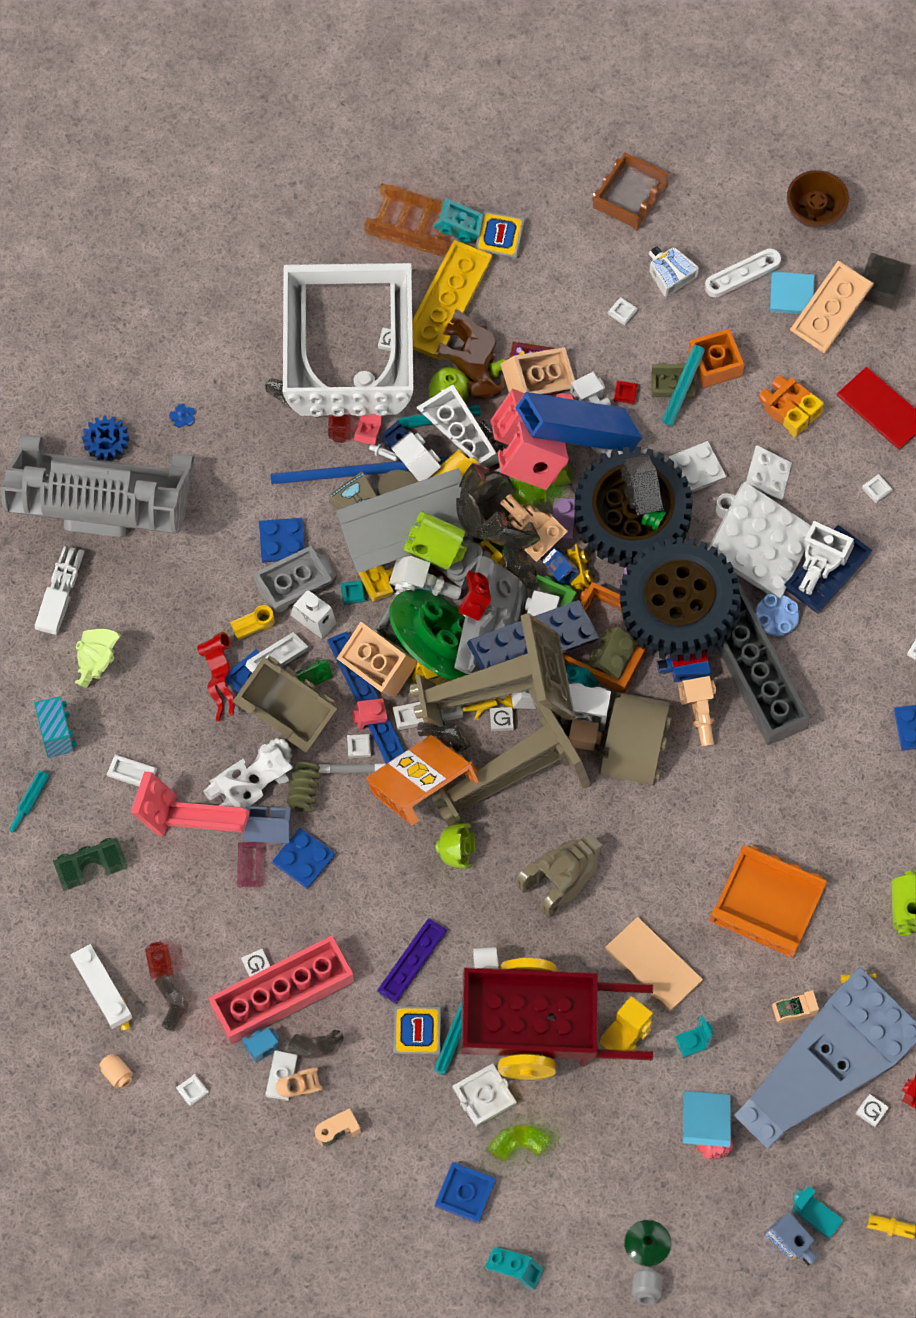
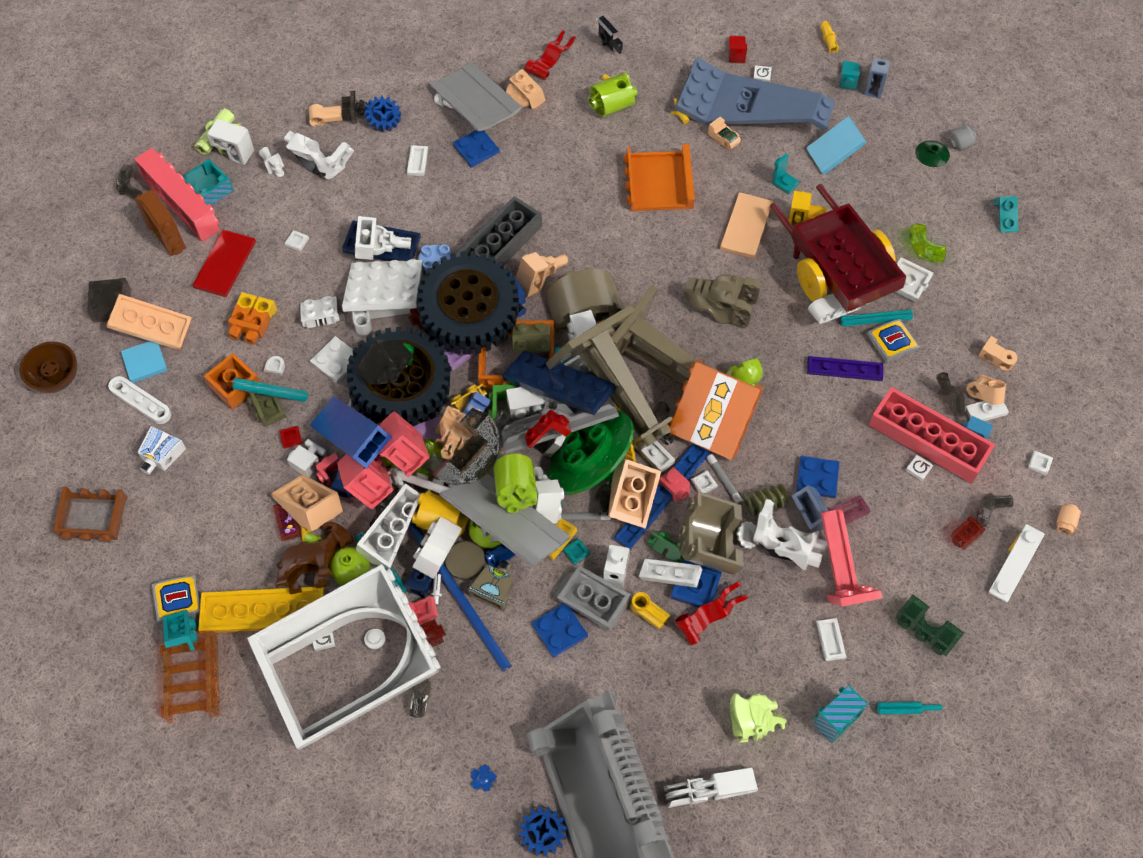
camera: 115 degrees left, 5 degrees down
(465, 1192) = (981, 261): blue plate -> none
(622, 311) = (213, 472): white tile -> none
(720, 409) = (274, 365): none -> white tile

